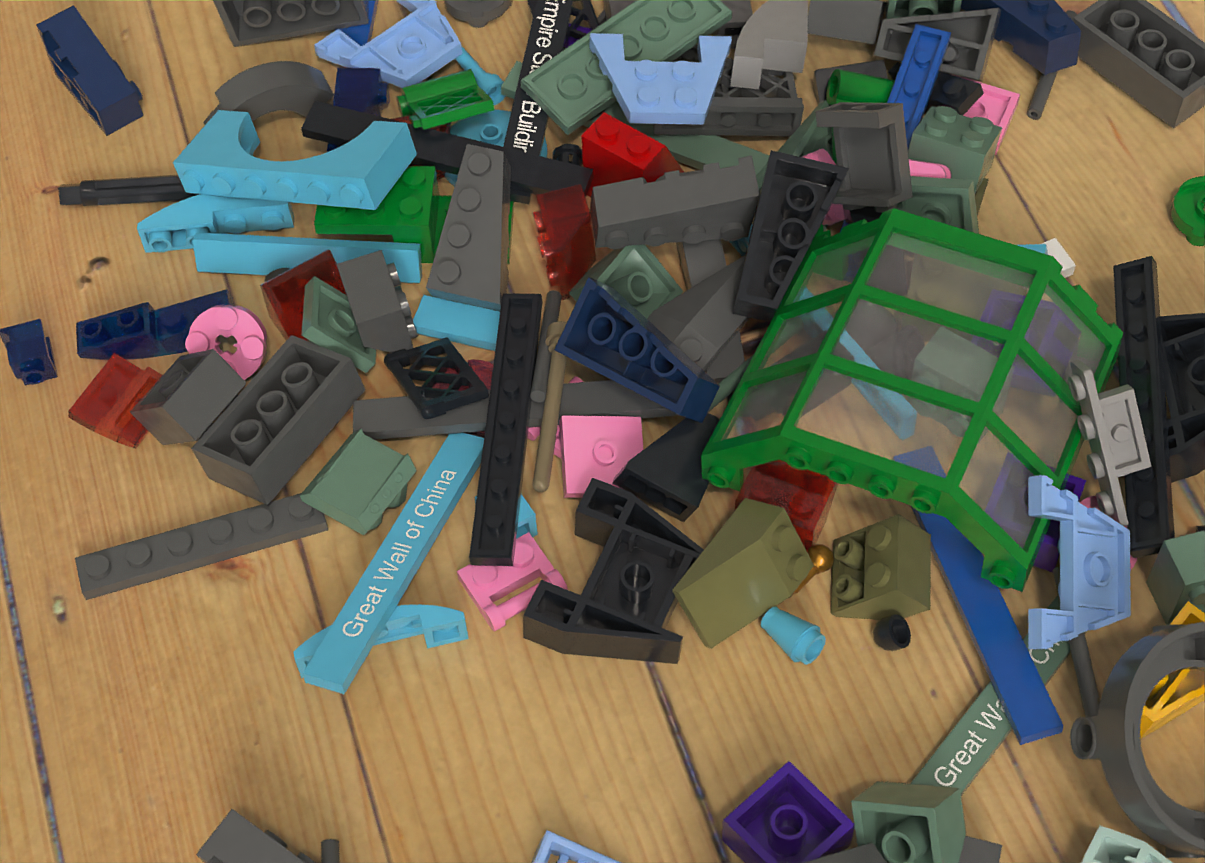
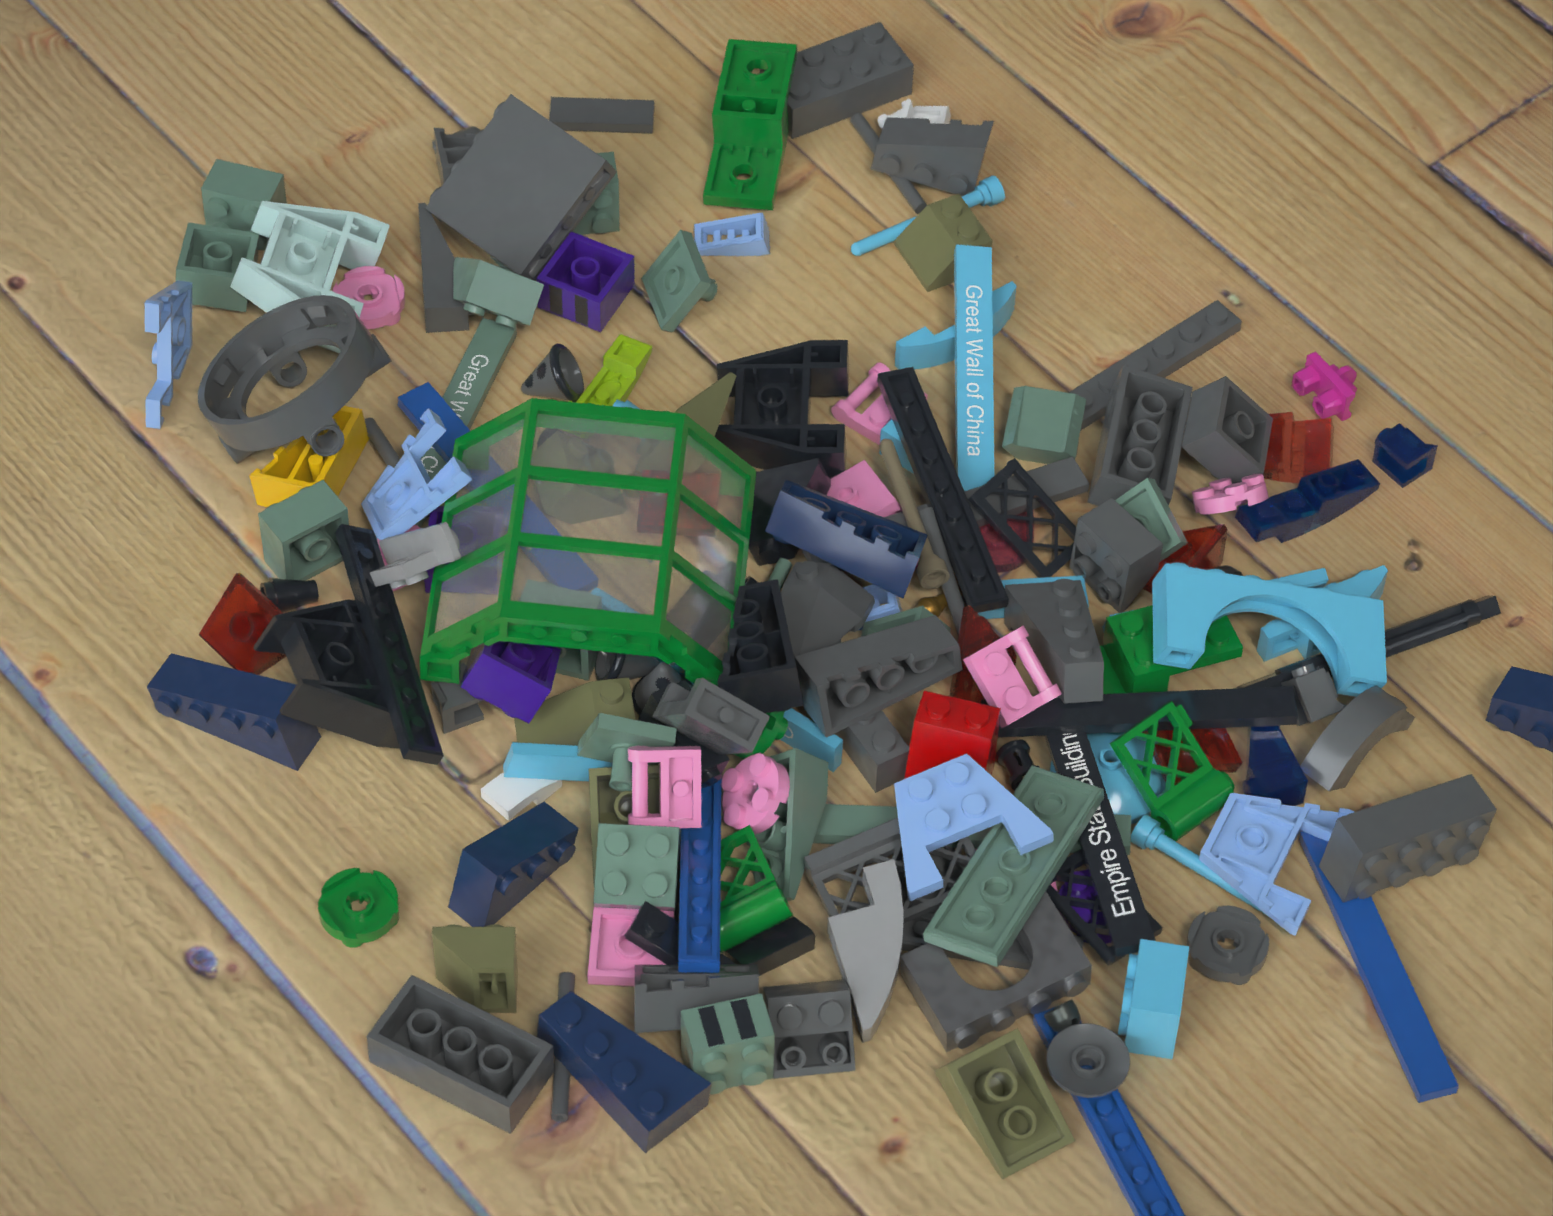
camera: 155 degrees right, 5 degrees down
(41, 448) = (1331, 384): none -> dark pink hips
(279, 140) = (1313, 694): none -> dark grey window
(335, 762) = (932, 238): none -> olive slope
(348, 816) = (988, 193): none -> medium azure piece
(562, 175) = (1001, 681): none -> bright pink plate
(676, 790) = (678, 281): none -> sand green tile
(817, 683) = (620, 372): none -> lime slope
(862, 714) = (556, 376): none -> dark grey hat
(1061, 192) = (510, 864): none -> dark blue wedge
(1119, 107) = (478, 965): none -> olive slope

